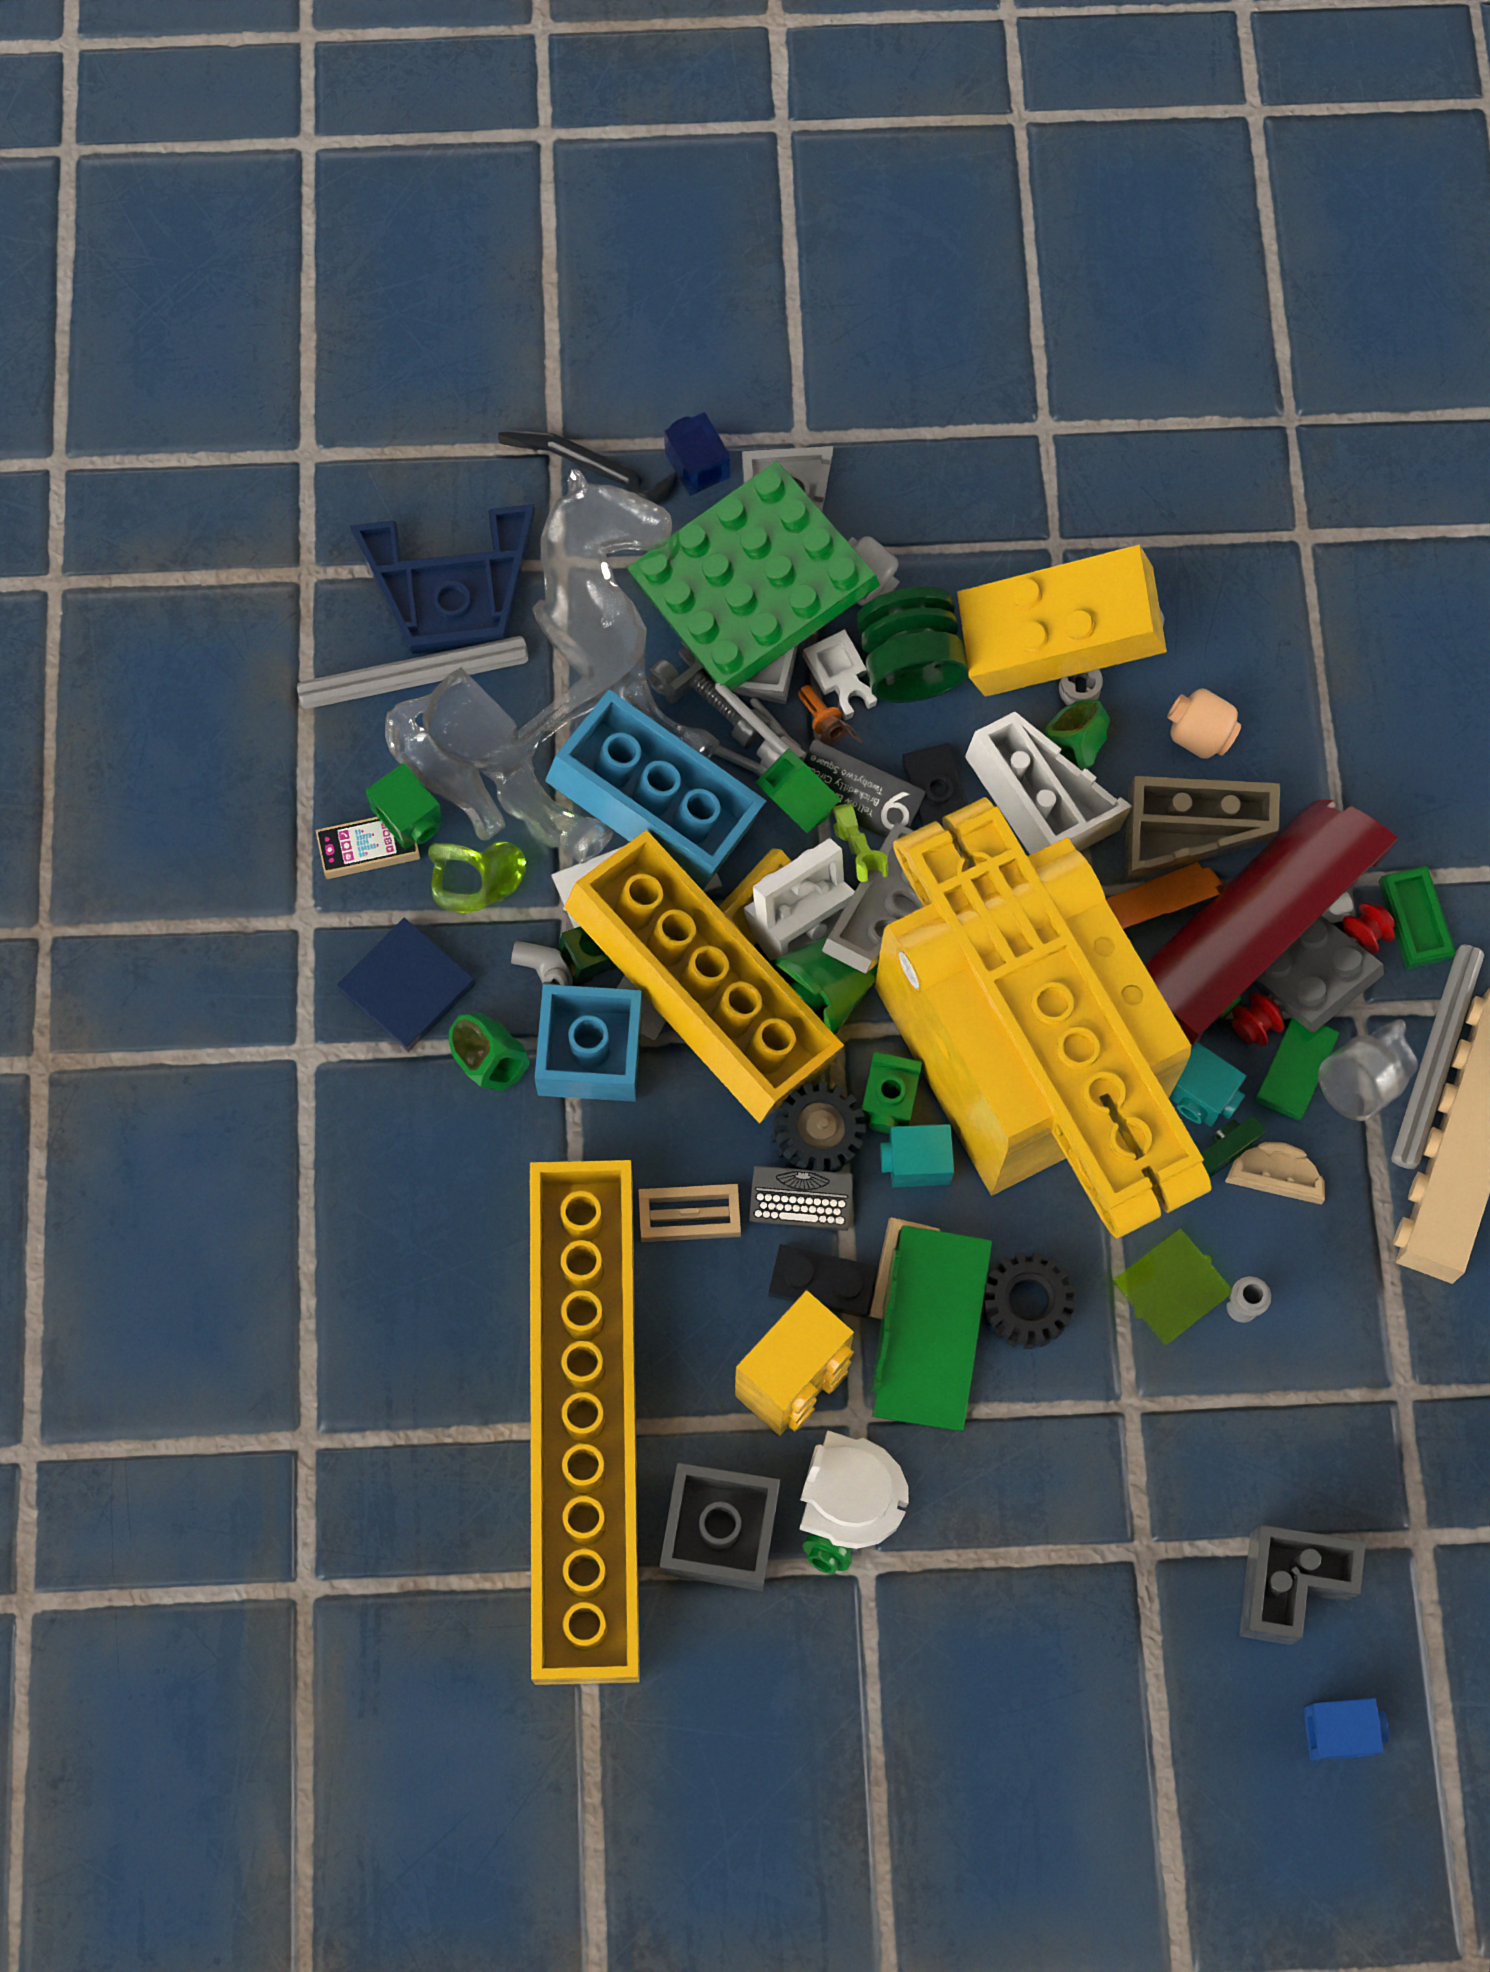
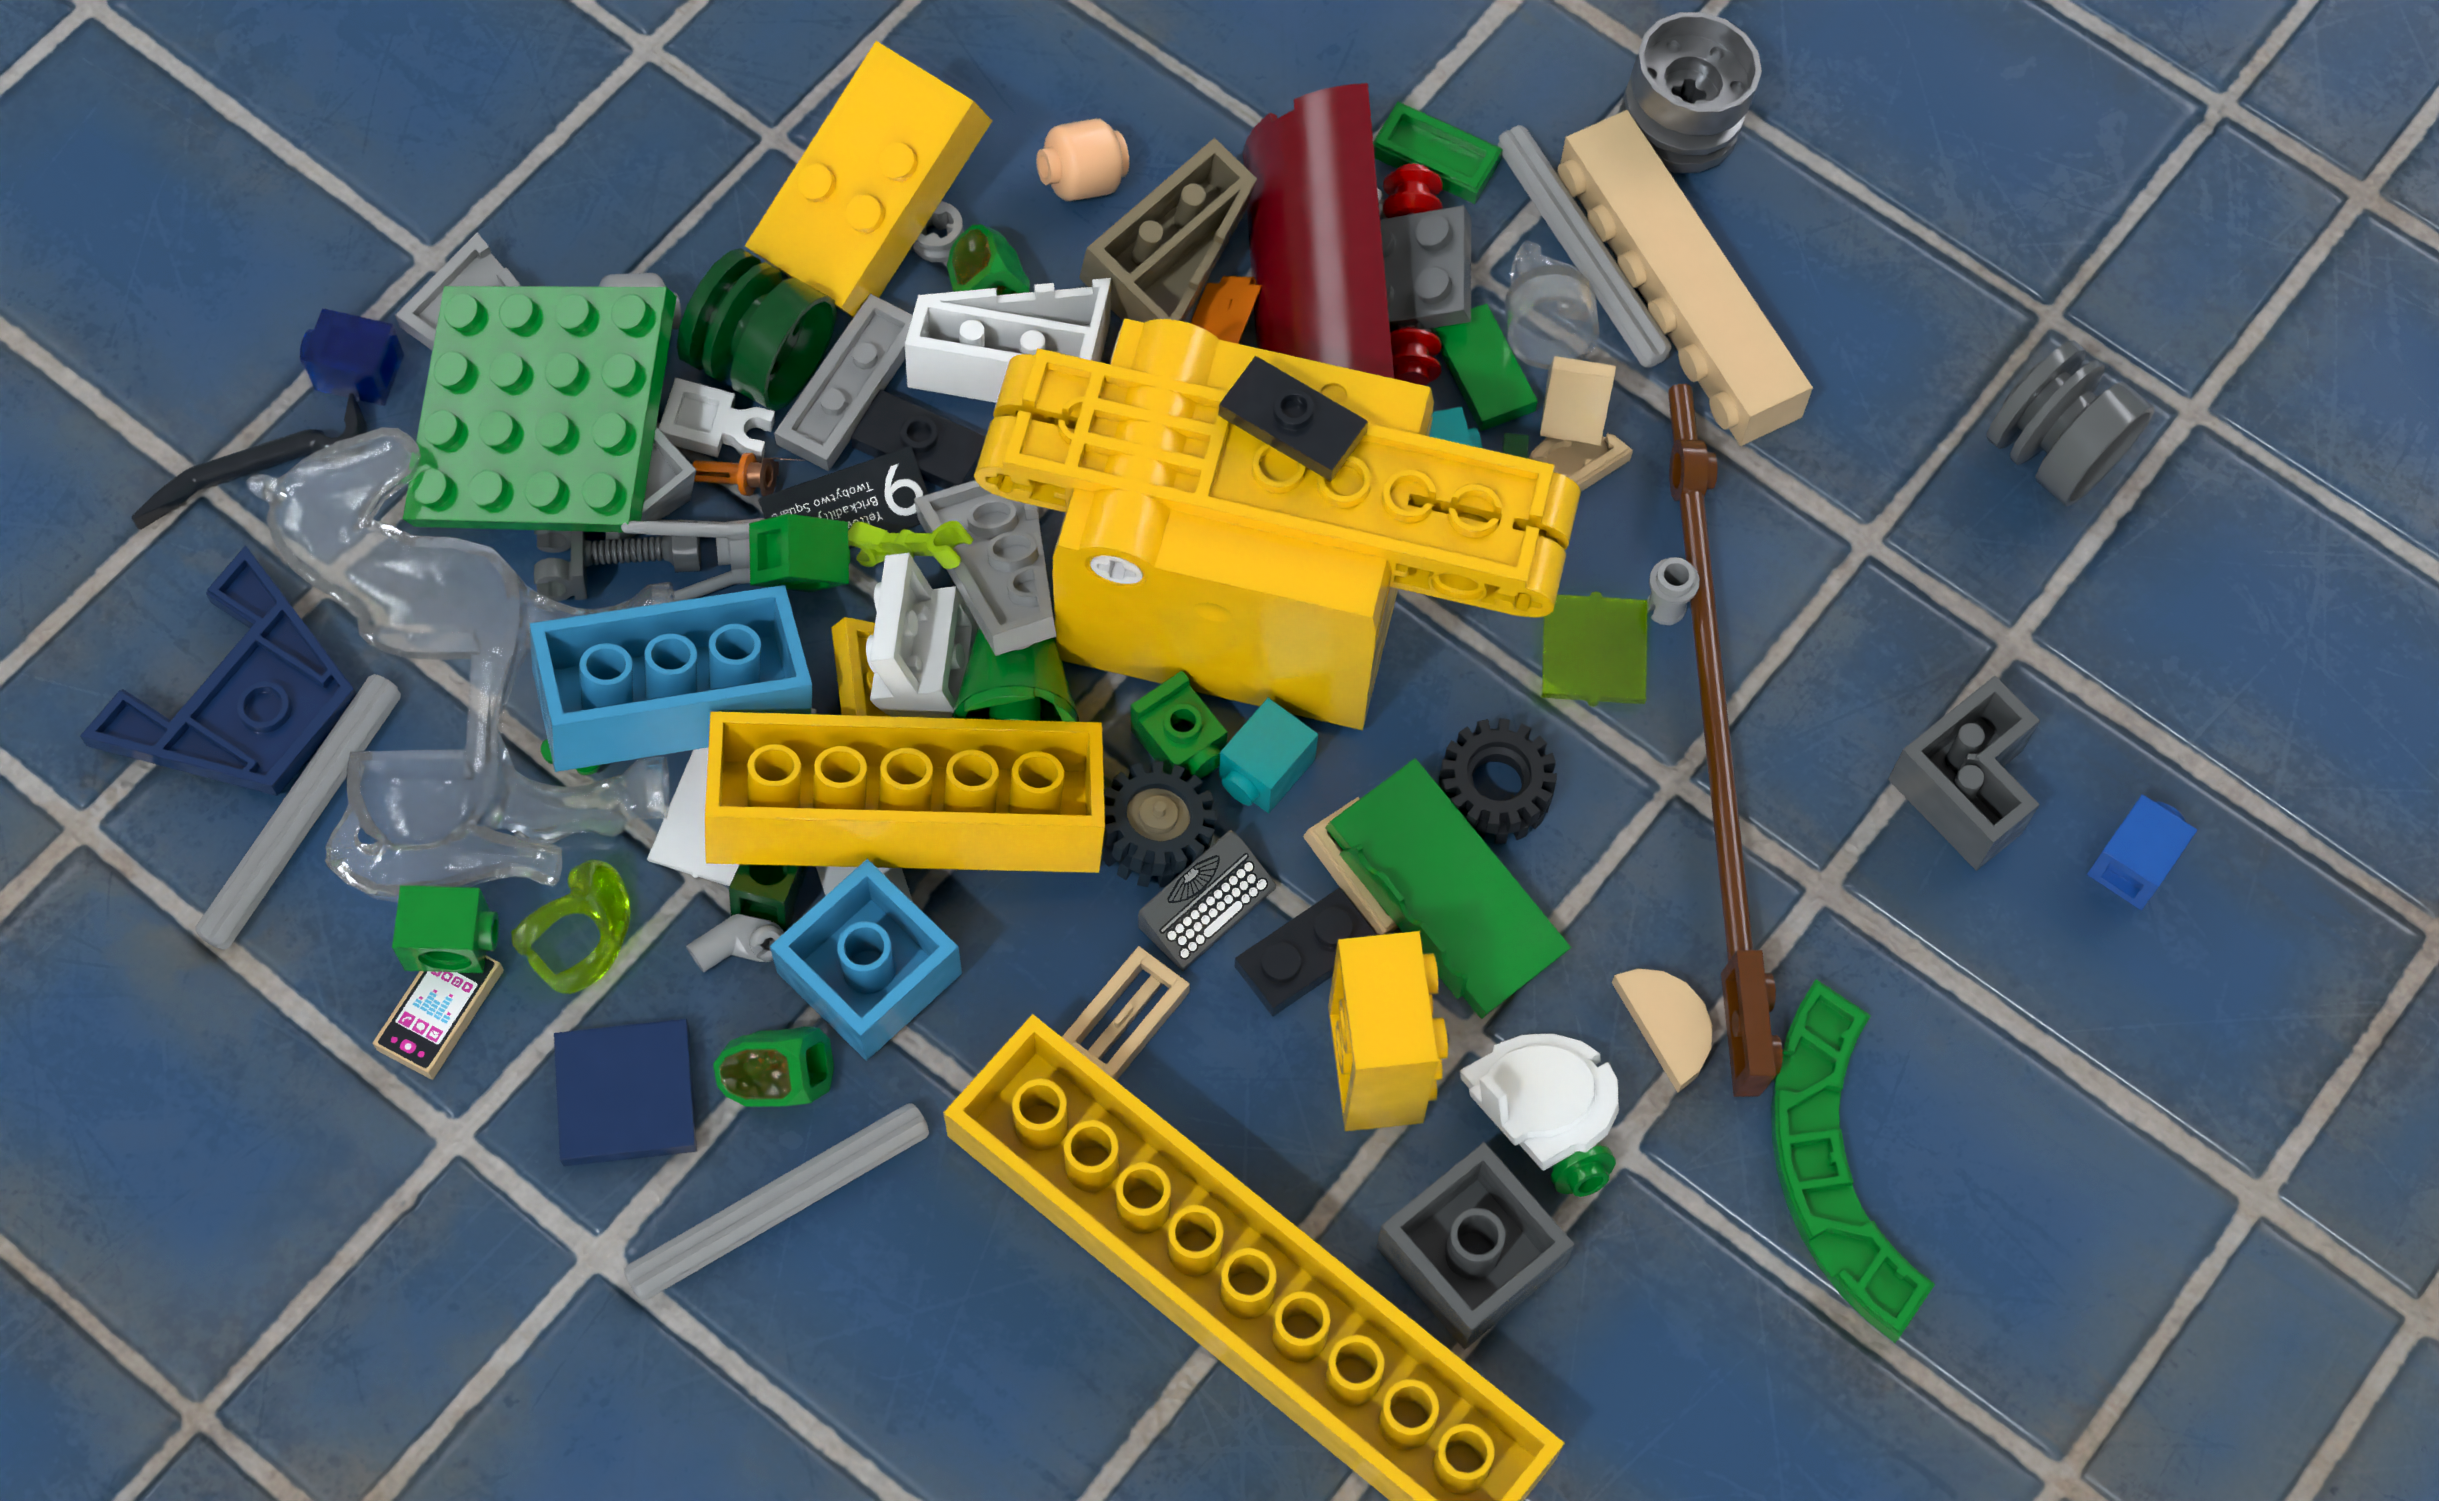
camera: 50 degrees left, 5 degrees down
(415, 1119) = (776, 1201): none -> light grey axle
(931, 721) = (846, 384): none -> light grey plate
(954, 1691) = (1817, 1173): none -> green tile
(971, 1528) = (1670, 1021): none -> tan tile
(1029, 1558) = (1746, 987): none -> reddish brown bar
(1086, 985) = (1293, 418): none -> black plate
(1319, 1139) = (1576, 400): none -> tan slope

